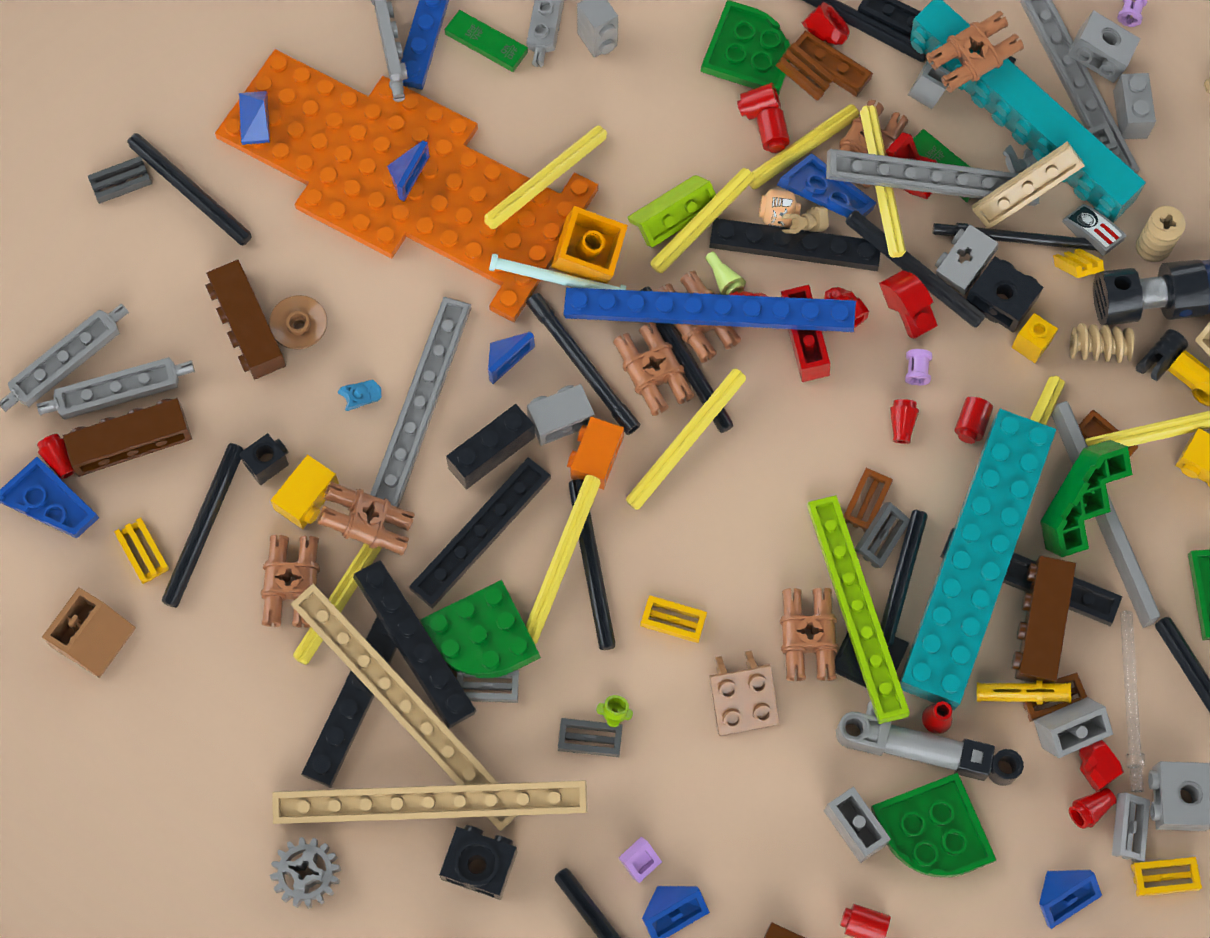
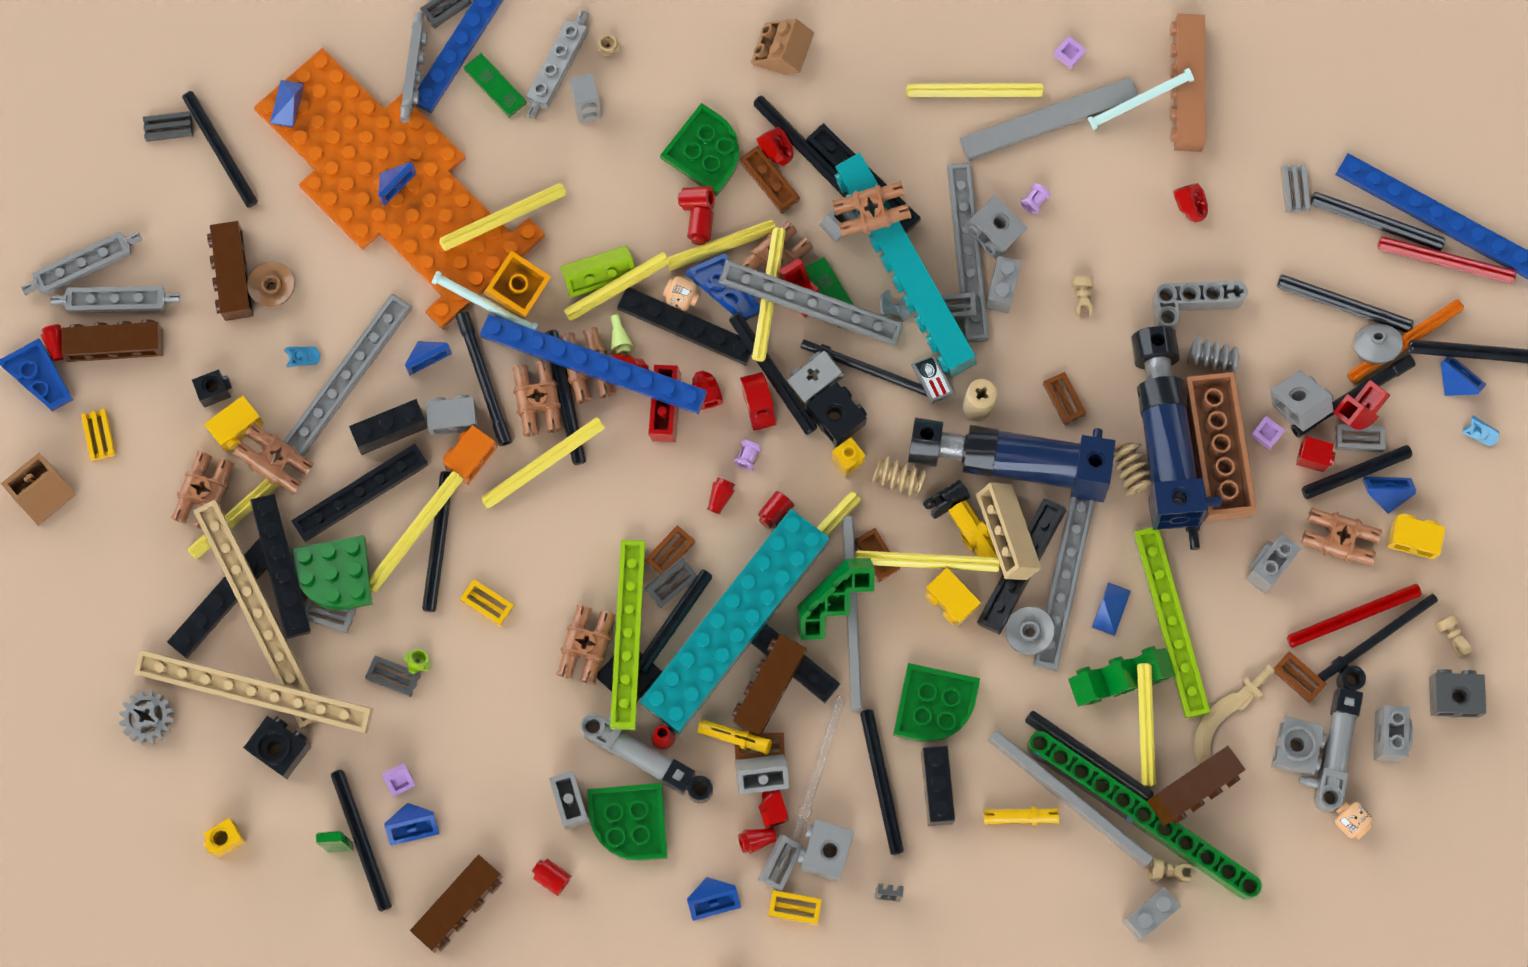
camera: 15 degrees right, 5 degrees up
(202, 526) = (149, 428): black axle -> none
(743, 697) = (518, 679): plate -> none
(807, 68) = (751, 178): dark orange tile -> none
(814, 220) = (707, 311): tan piece -> none
(1028, 185) = (883, 331): tan tile -> none
(1073, 263) = (904, 400): yellow tile -> none

